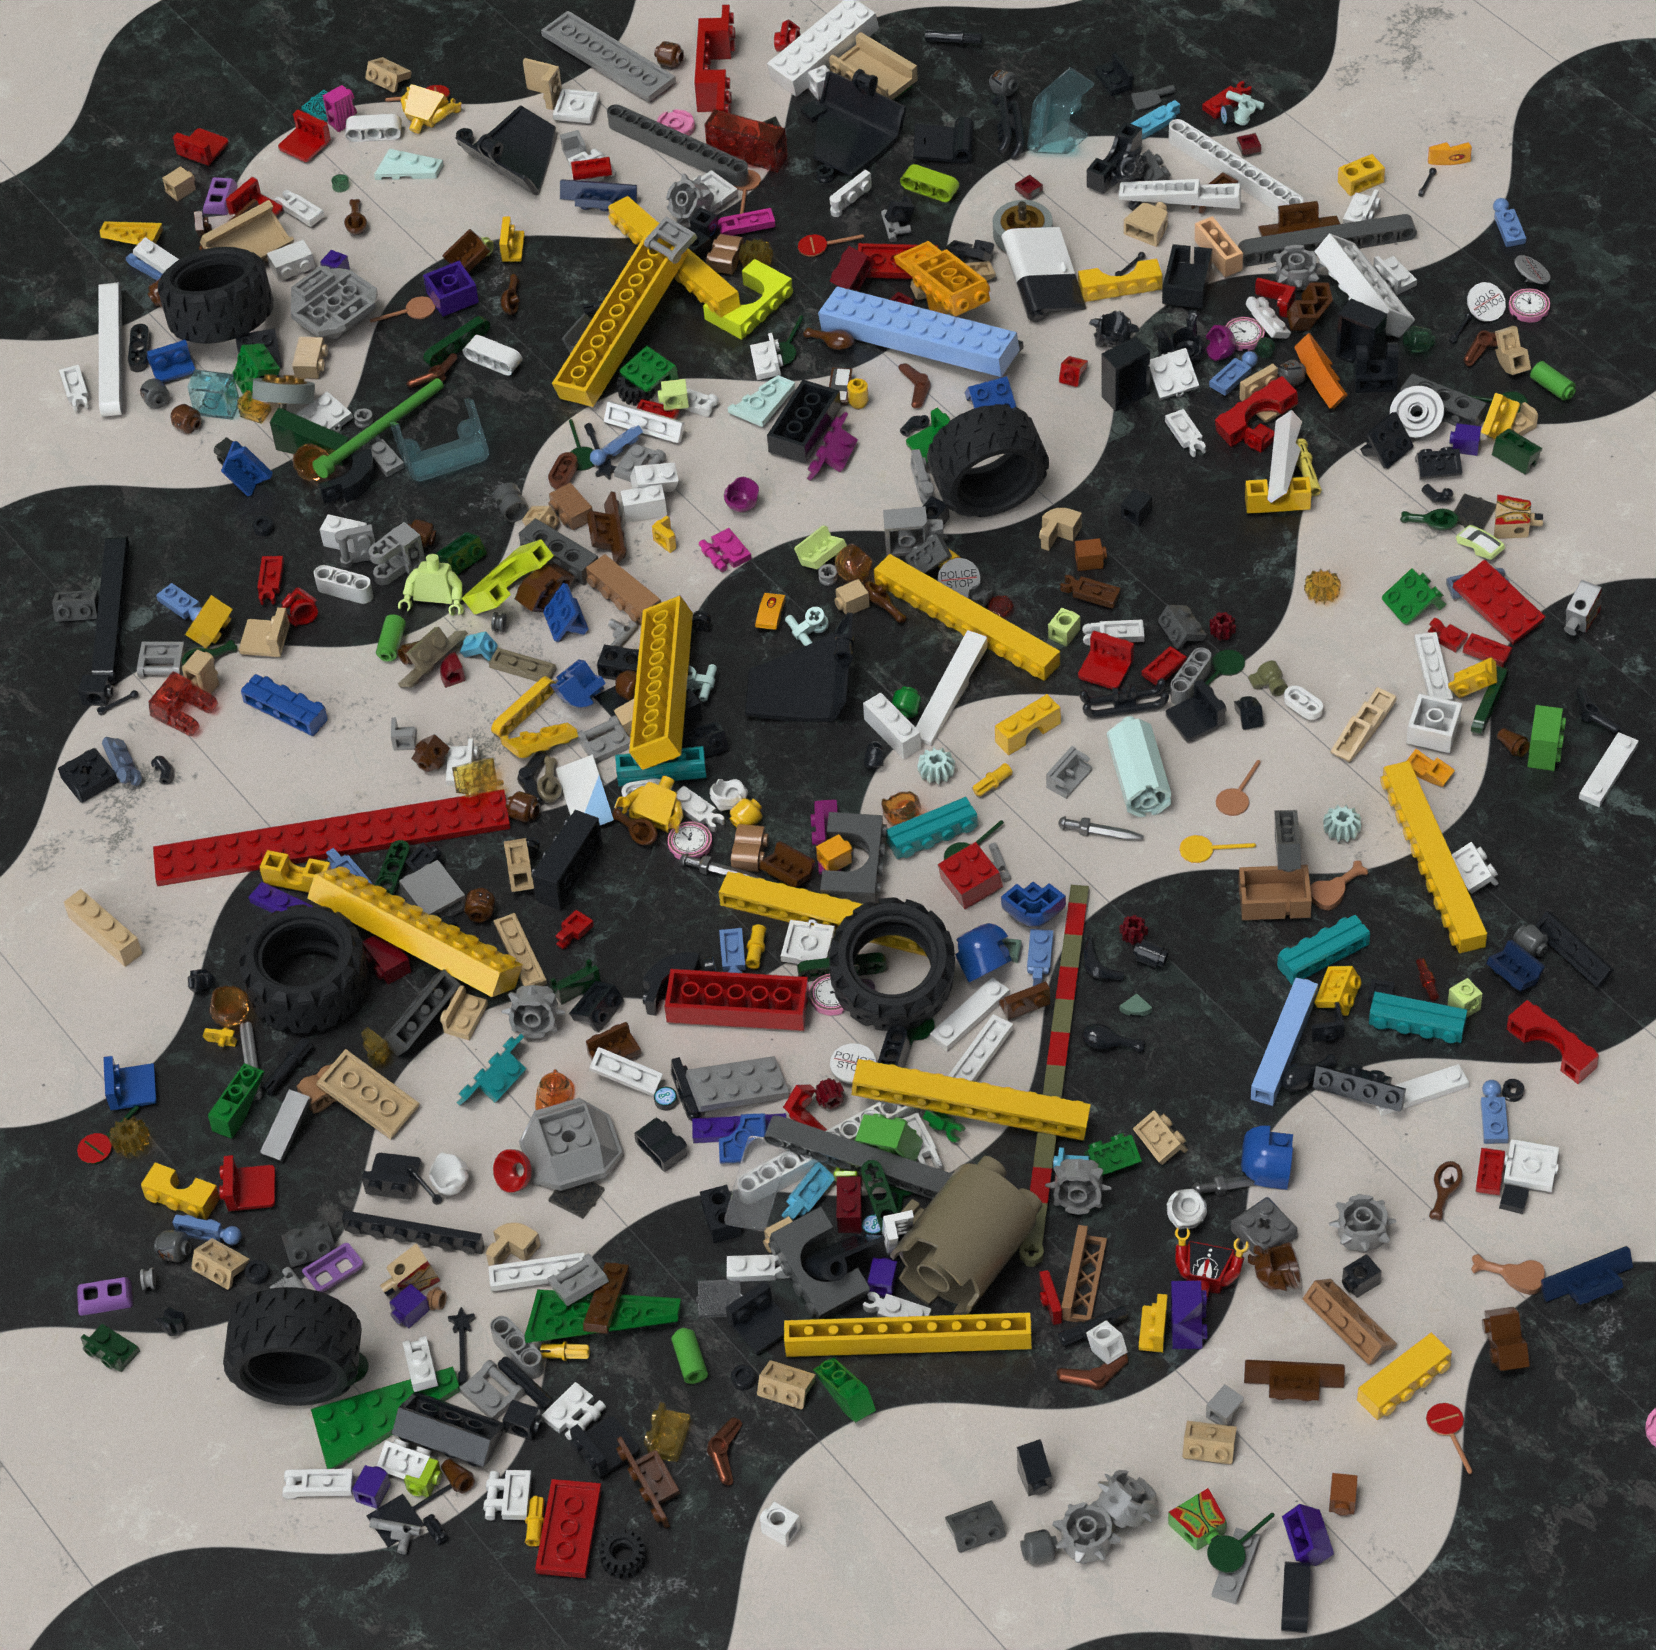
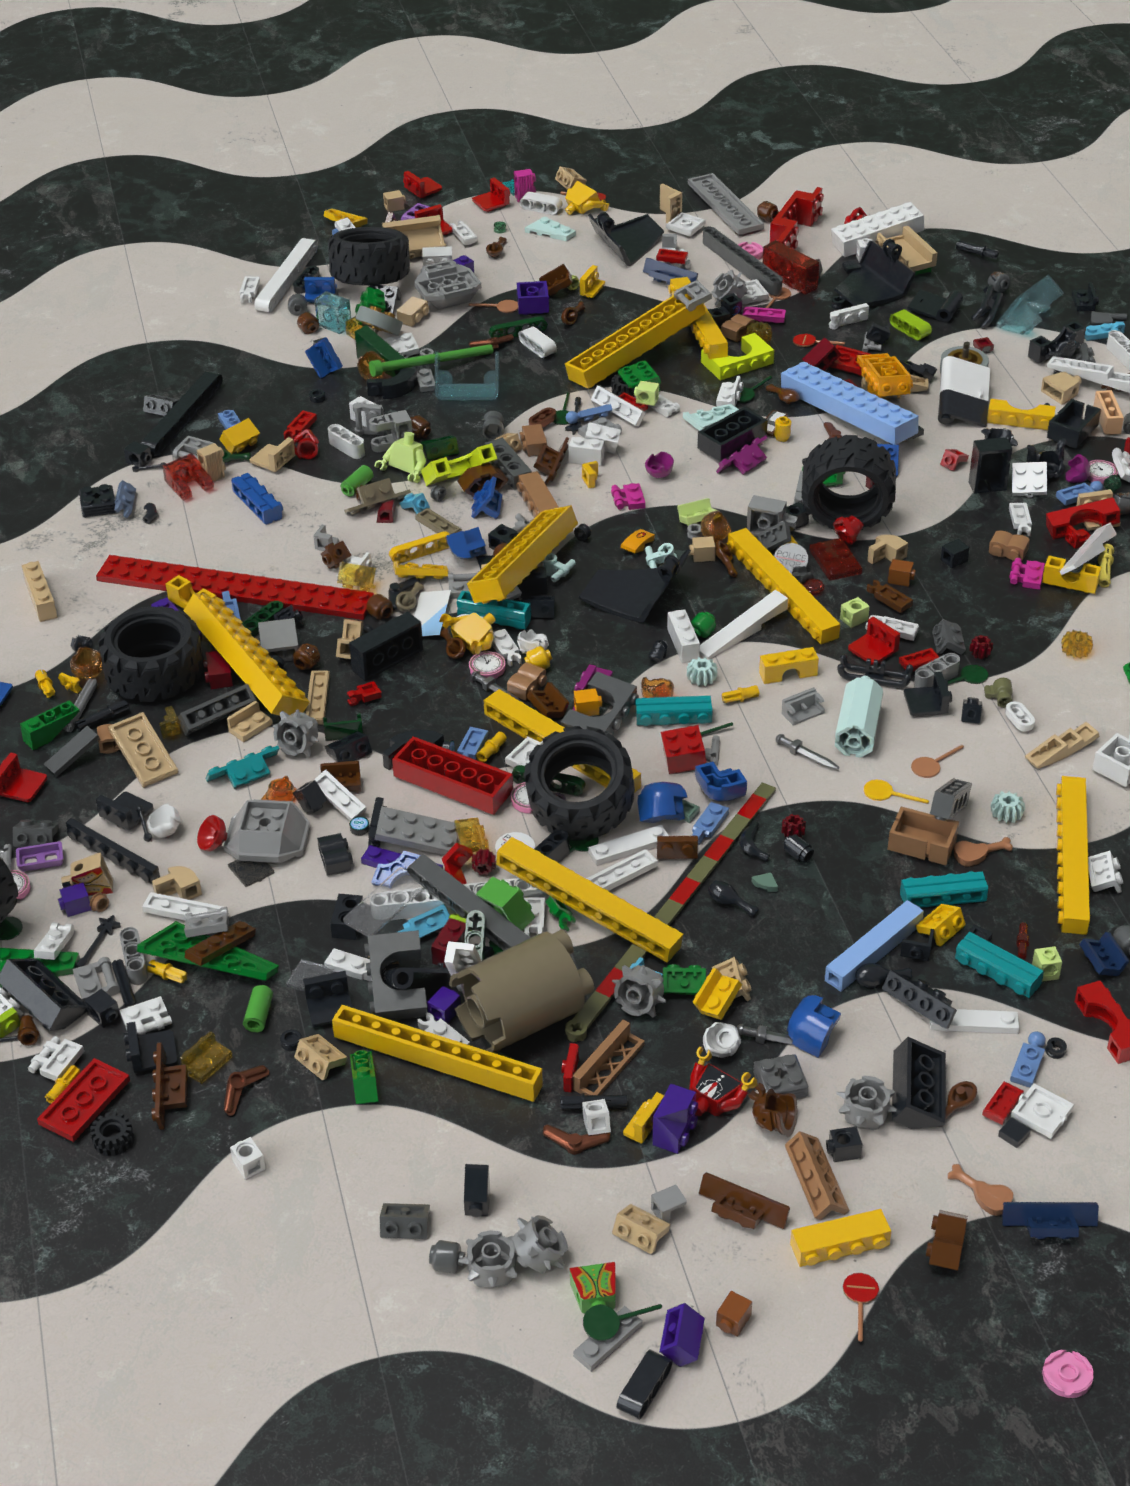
camera: 20 degrees right, 10 degrees down
(191, 1048) = (45, 683): none -> yellow axle
(594, 1084) = (310, 796): none -> black brick
(799, 1067) = (471, 834): none -> clear yellow bracket
(1005, 515) = (849, 529): none -> red piece
(1005, 558) = (835, 559): none -> clear red plate
(1156, 1159) = (716, 994): none -> yellow bracket
(1190, 475) = (1008, 545): none -> medium nougat brick
(1232, 505) = (1033, 573): none -> dark pink plate
(1403, 1184) = (919, 1085): none -> black slope
(1432, 771) = (1101, 793): light orange slope -> none

